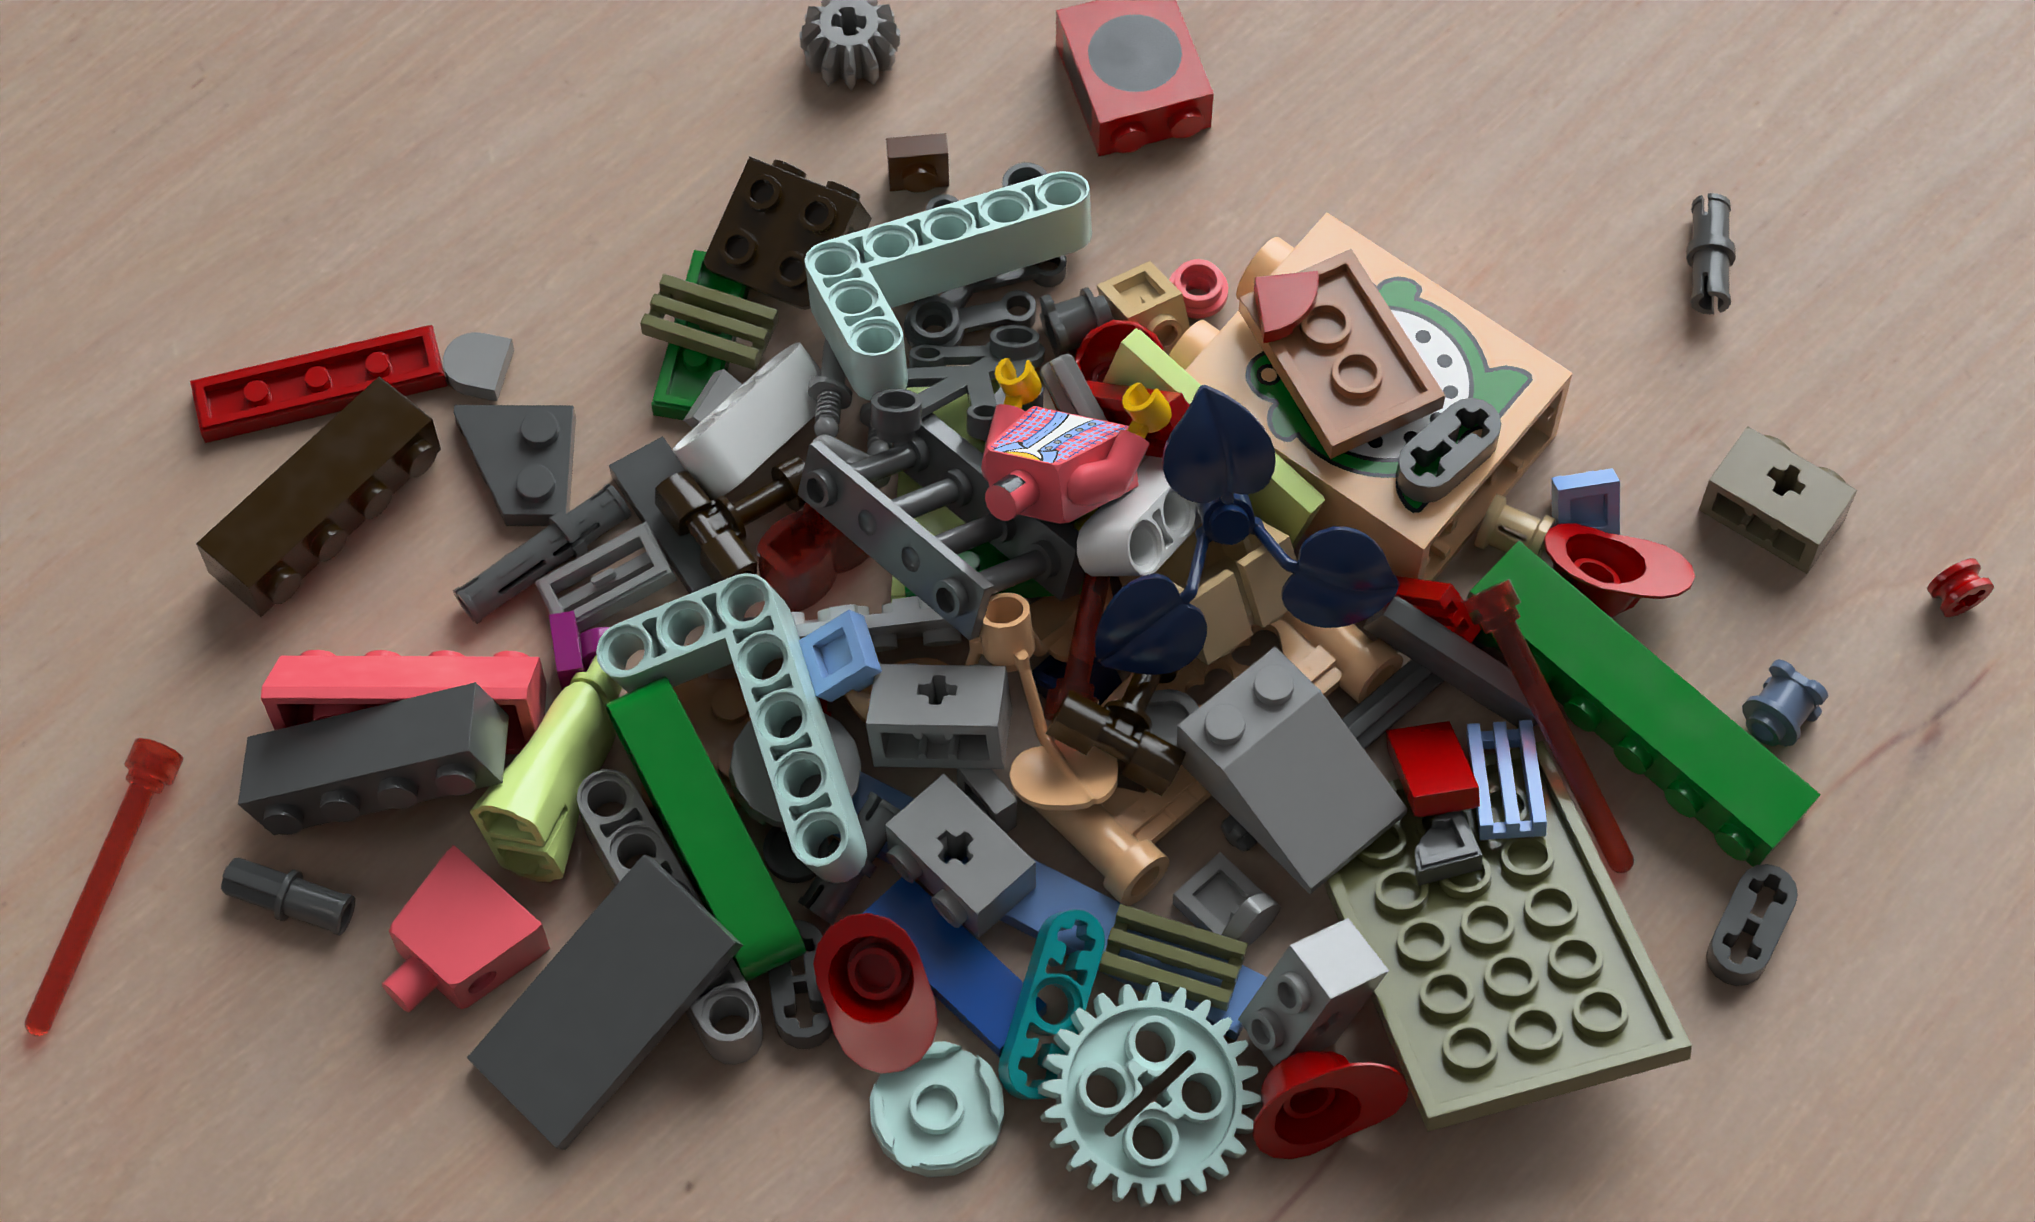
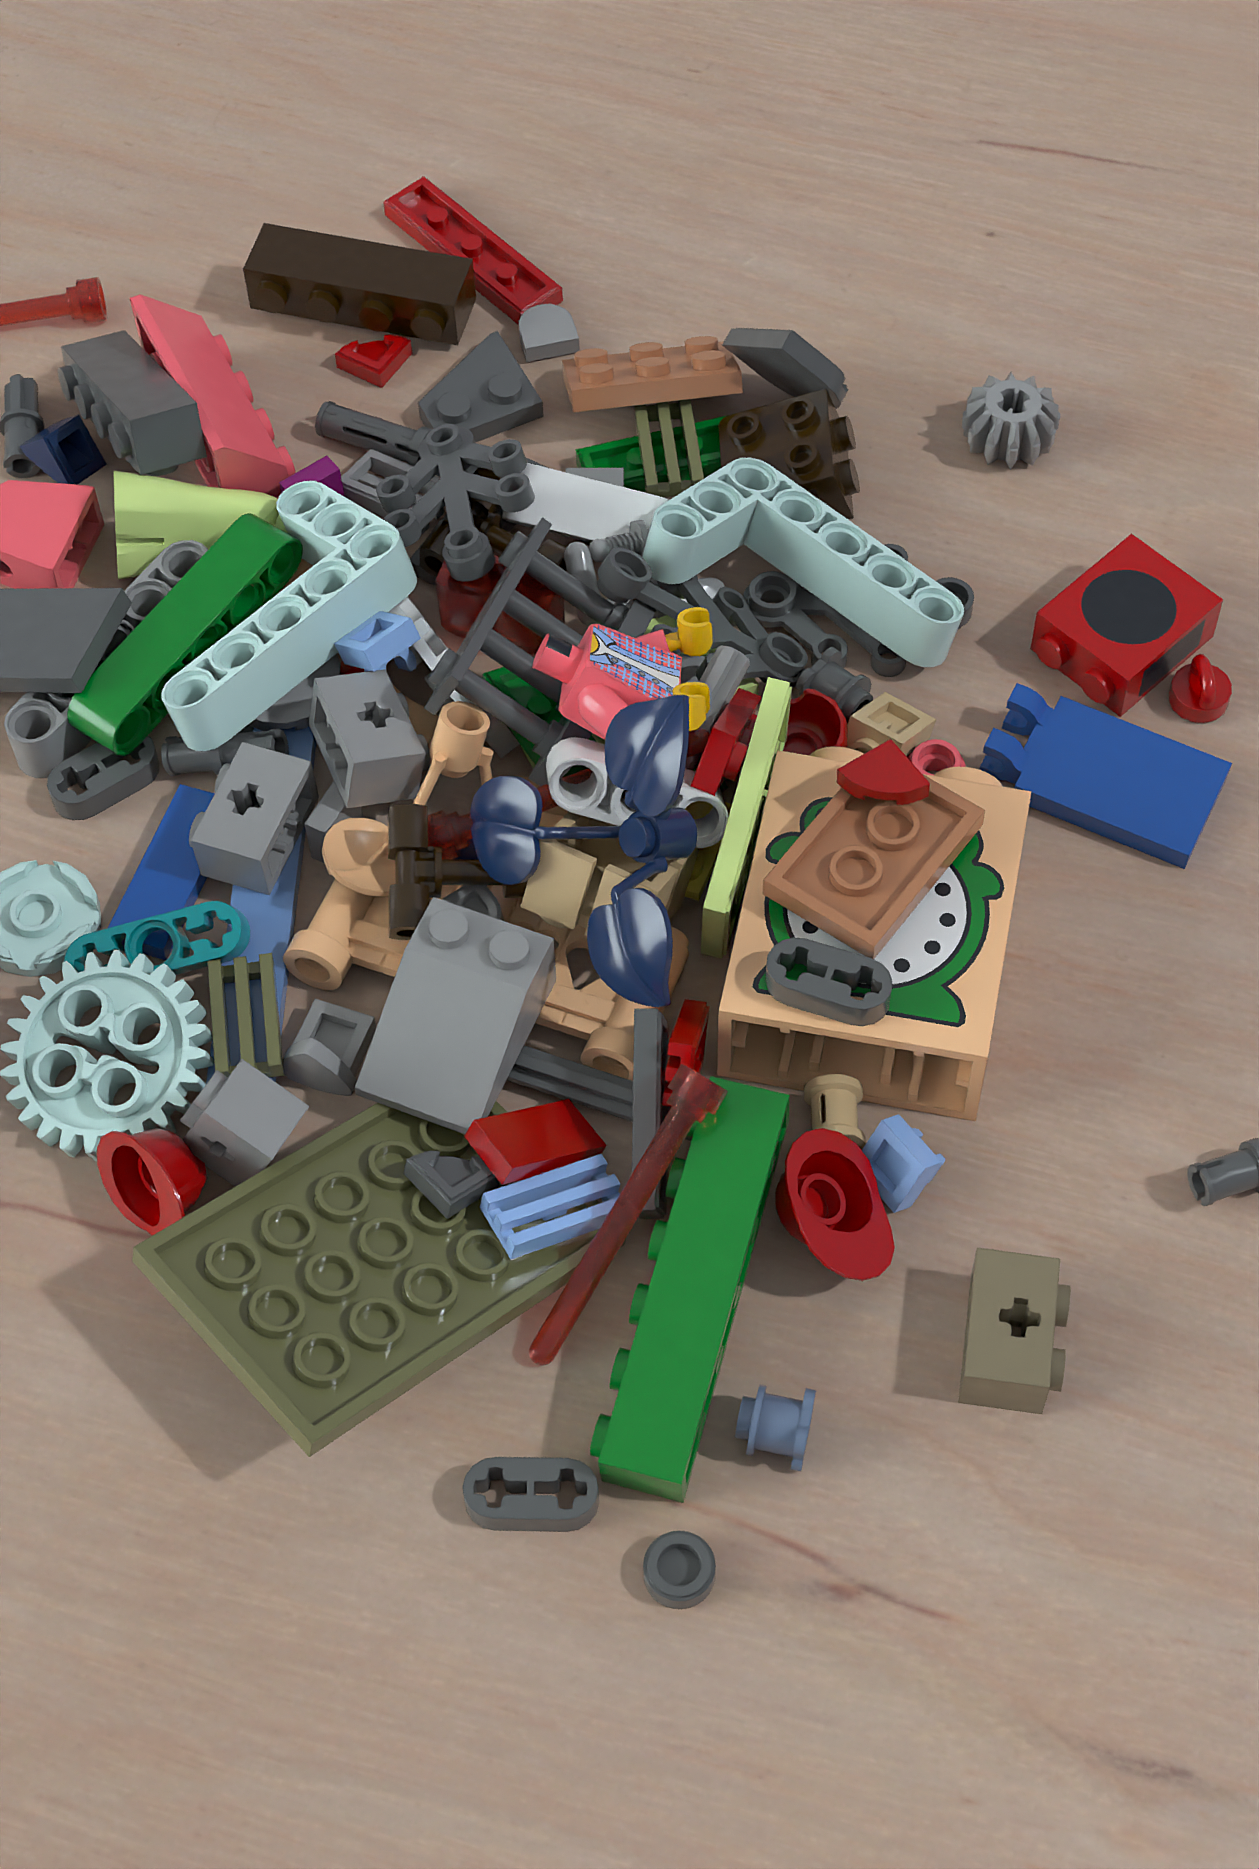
camera: 65 degrees right, 5 degrees down
(358, 864) = (65, 451): none -> dark blue slope
(407, 531) = (374, 360): none -> red tile
(614, 297) = (651, 374): none -> nougat plate
(688, 512) = (447, 454): none -> dark grey plant
(689, 174) = (787, 361): none -> dark grey tile
(876, 992) = (109, 815): red piece -> none
(918, 162) = (920, 516): reddish brown plate -> none
(1227, 54) = (1200, 691): none -> red tile
(1275, 165) = (1107, 774): none -> blue tile
(1866, 843) = (679, 1569): none -> dark grey tile
(1960, 587) = (1014, 1544): red bush -> none

